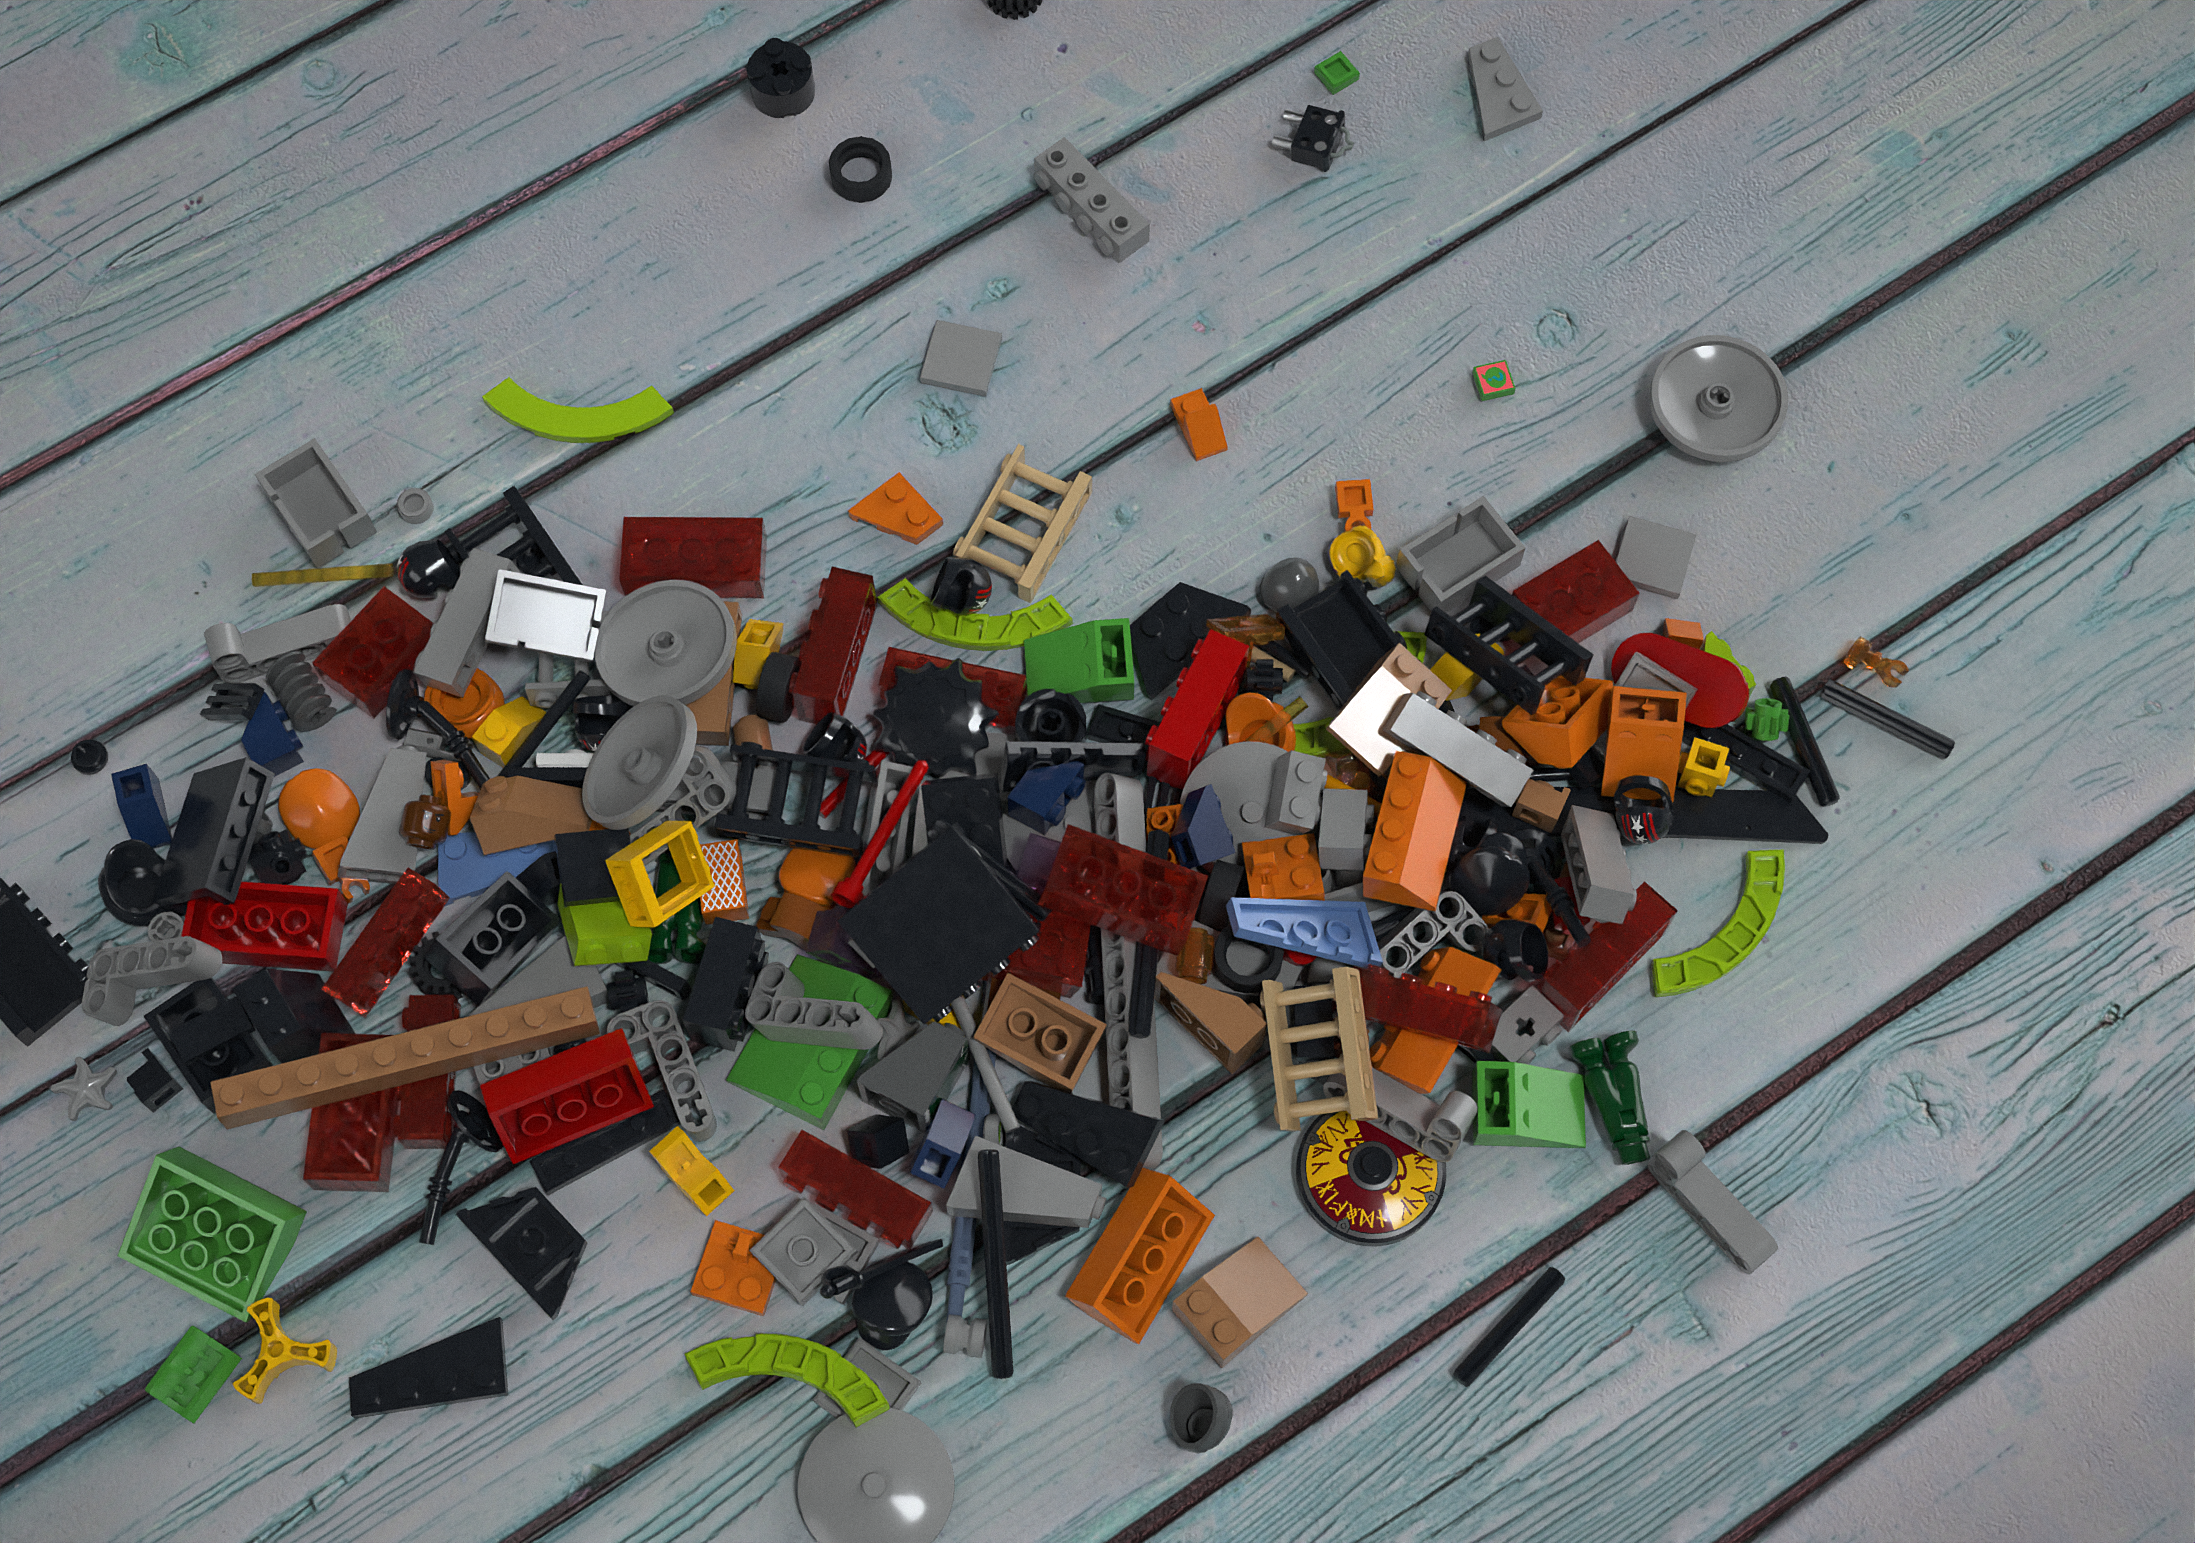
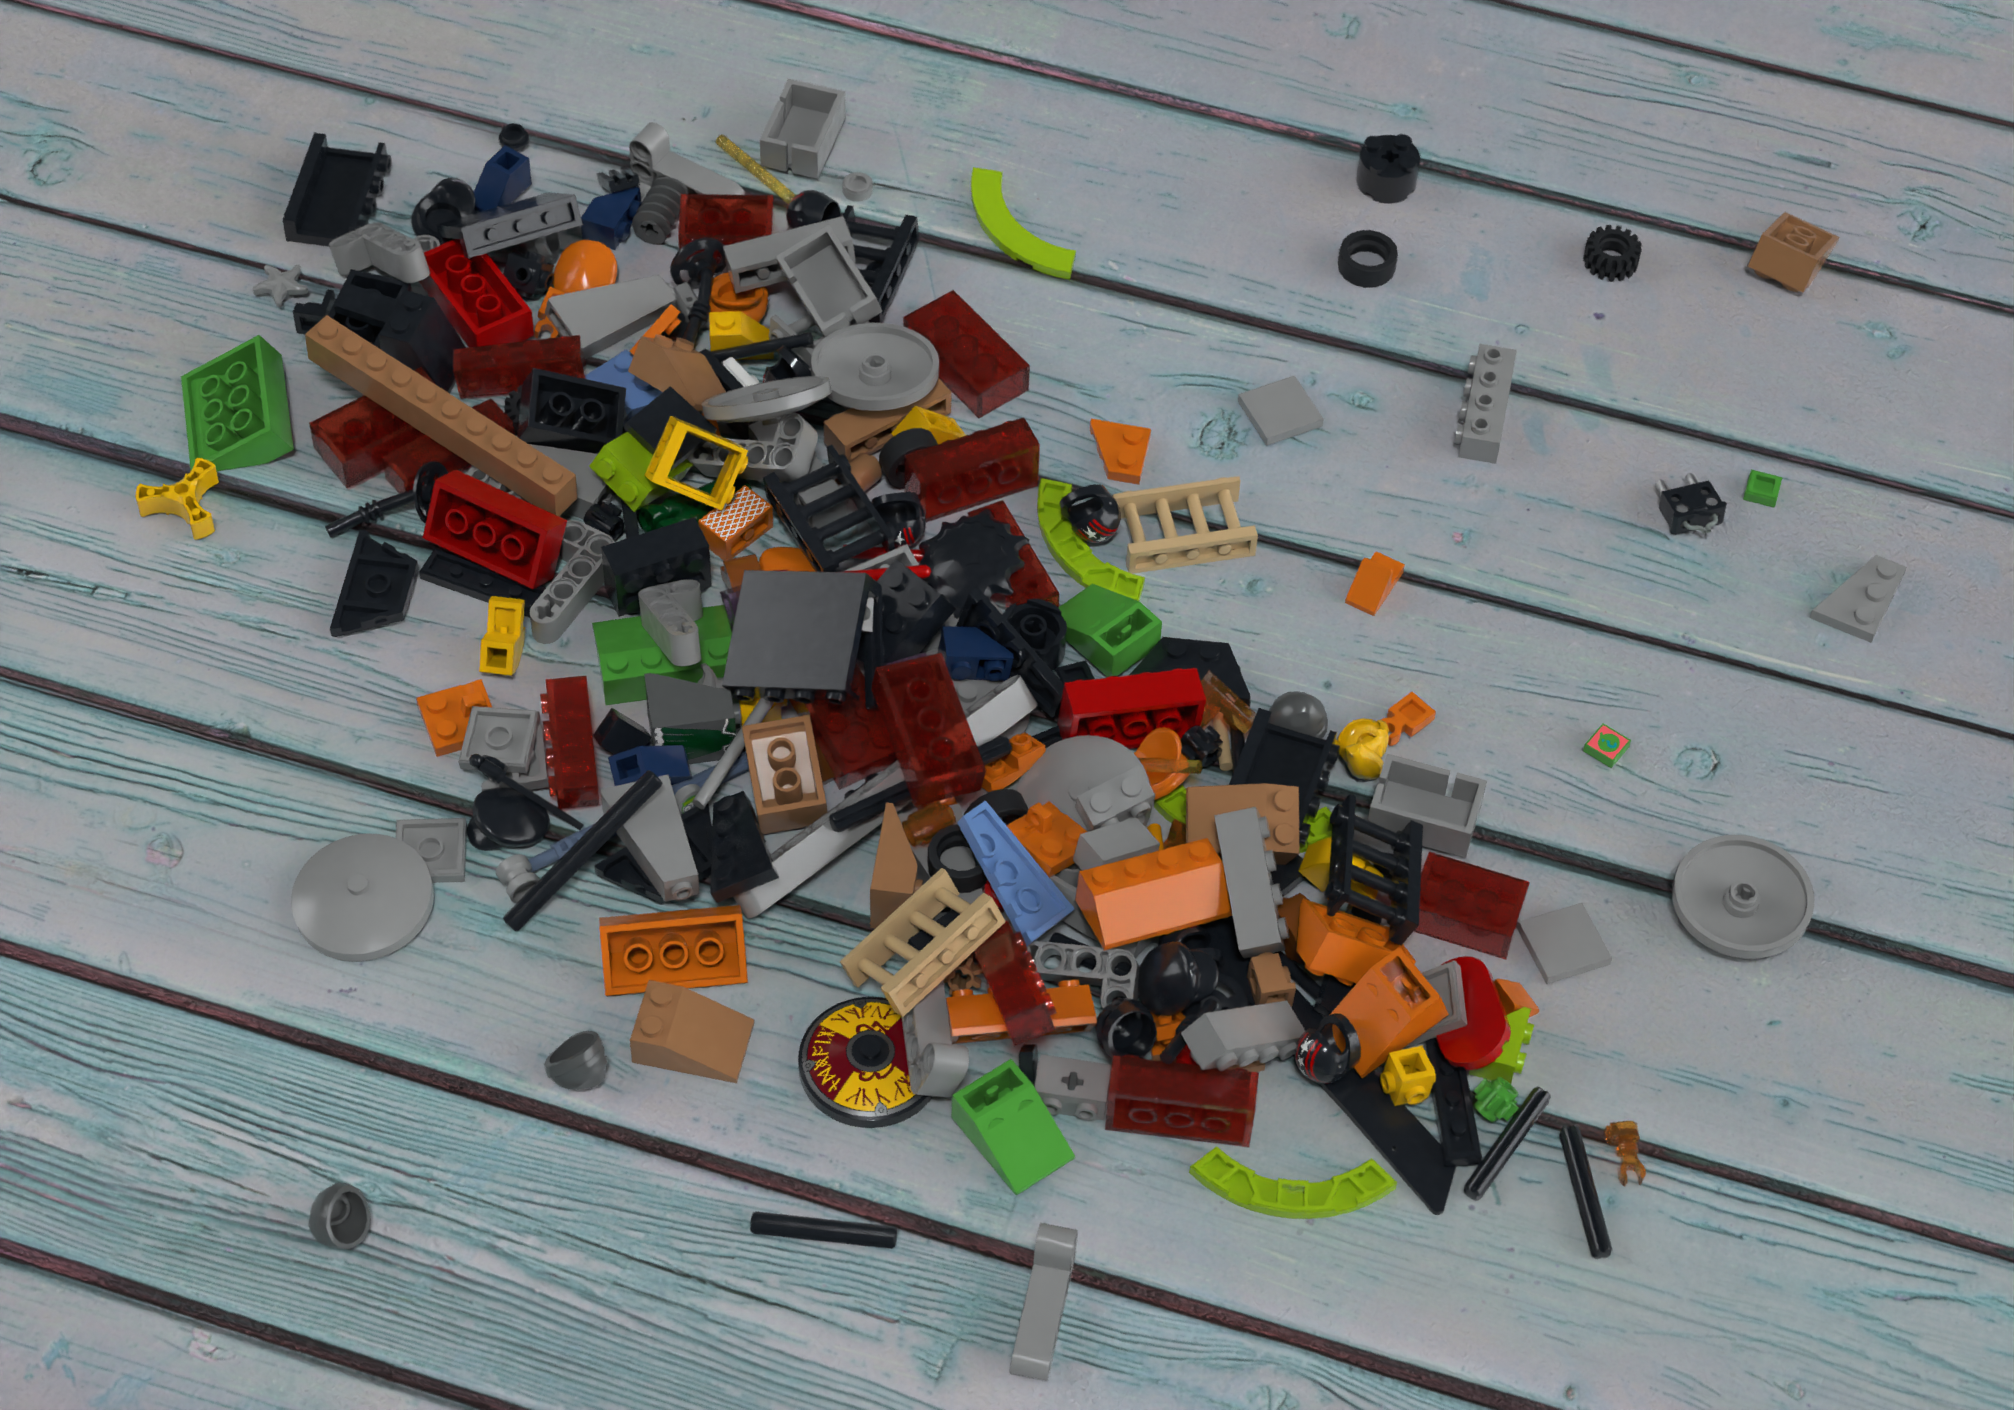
camera: 50 degrees right, 15 degrees down
(192, 1374) = (130, 461): bright green bracket -> none
(425, 822) = (621, 324): reddish brown head -> none
(444, 1373) = (240, 598): black wing -> none
(793, 1359) = (414, 784): lime tile -> none
(1201, 830) = (1029, 765): dark blue slope -> none
(1616, 1092) = (1079, 1183): dark green piece -> none

